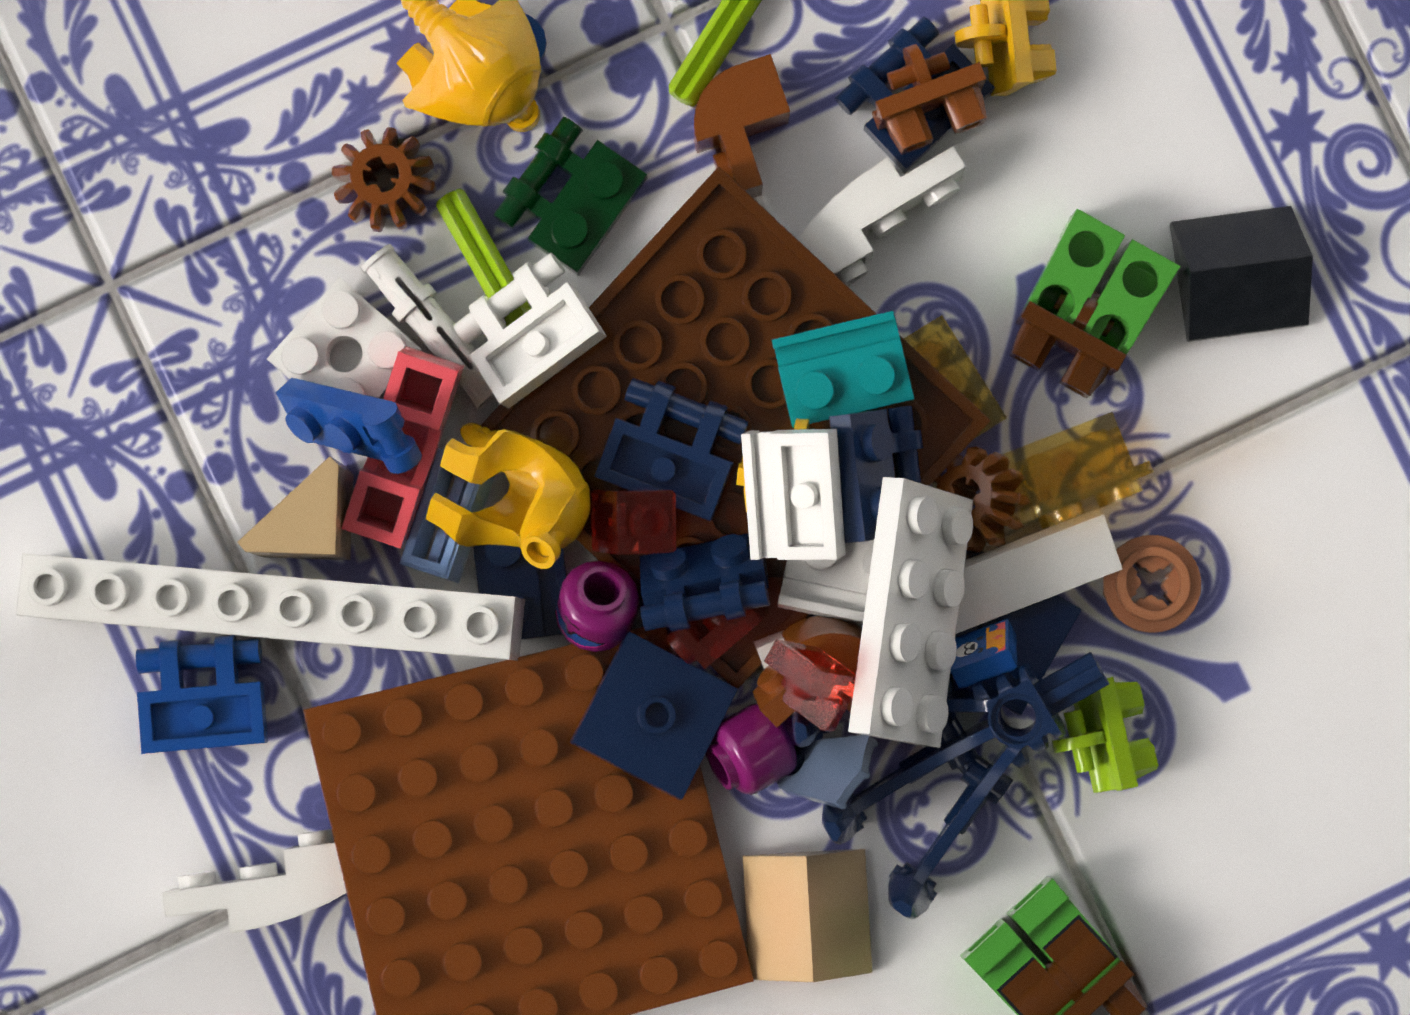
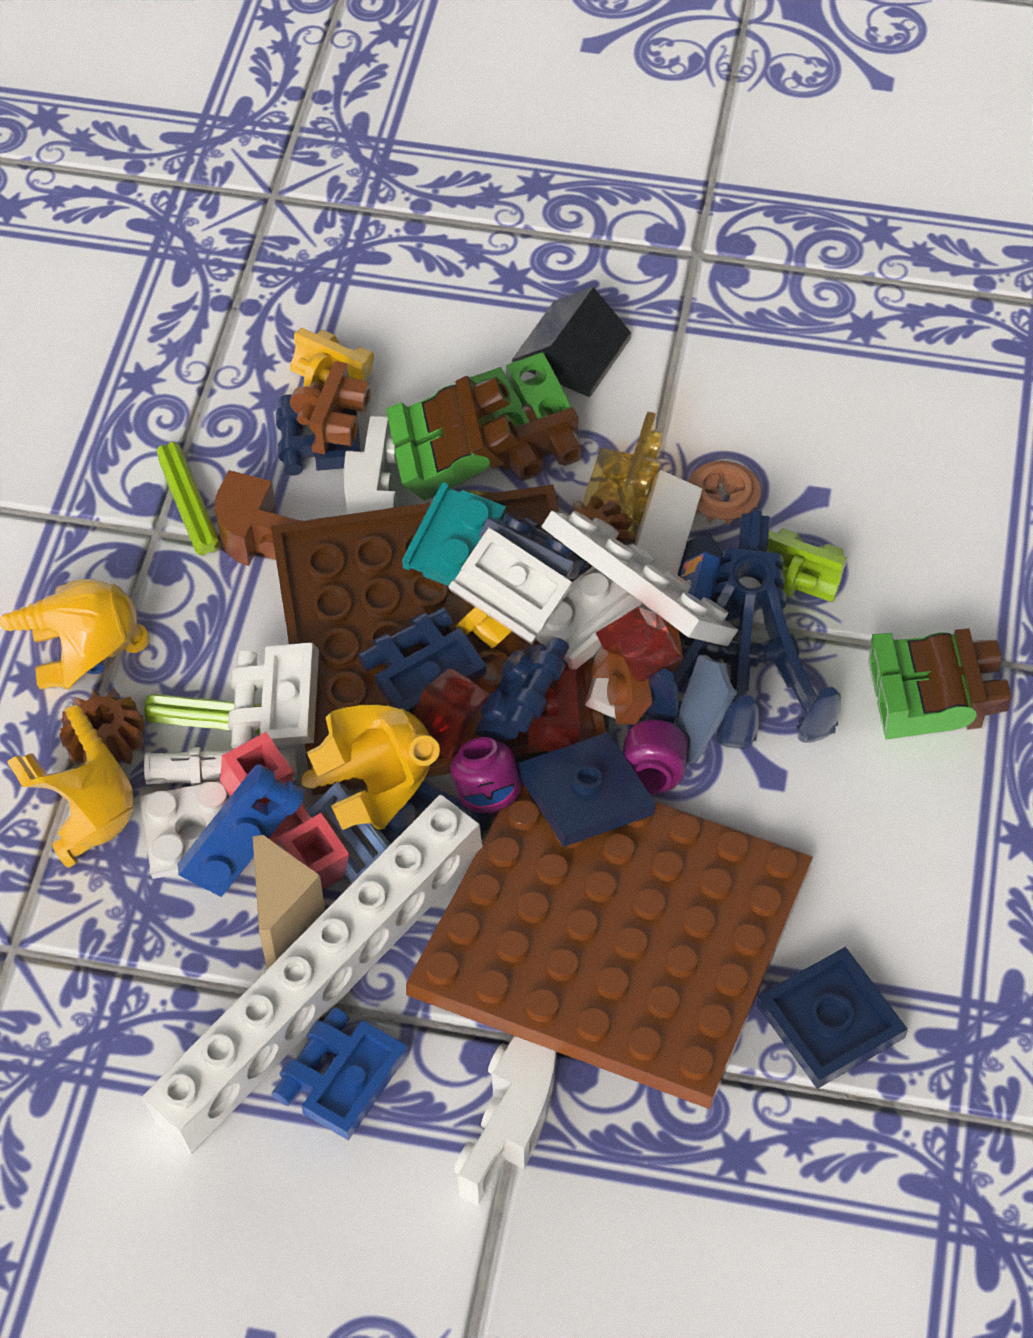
camera: 50 degrees left, 30 degrees down
(277, 250) = (96, 792): none -> yellow piece
(585, 207) = (223, 631): dark green plate -> none
(807, 915) = (788, 801): tan slope -> none
(1006, 270) = (451, 435): none -> hips

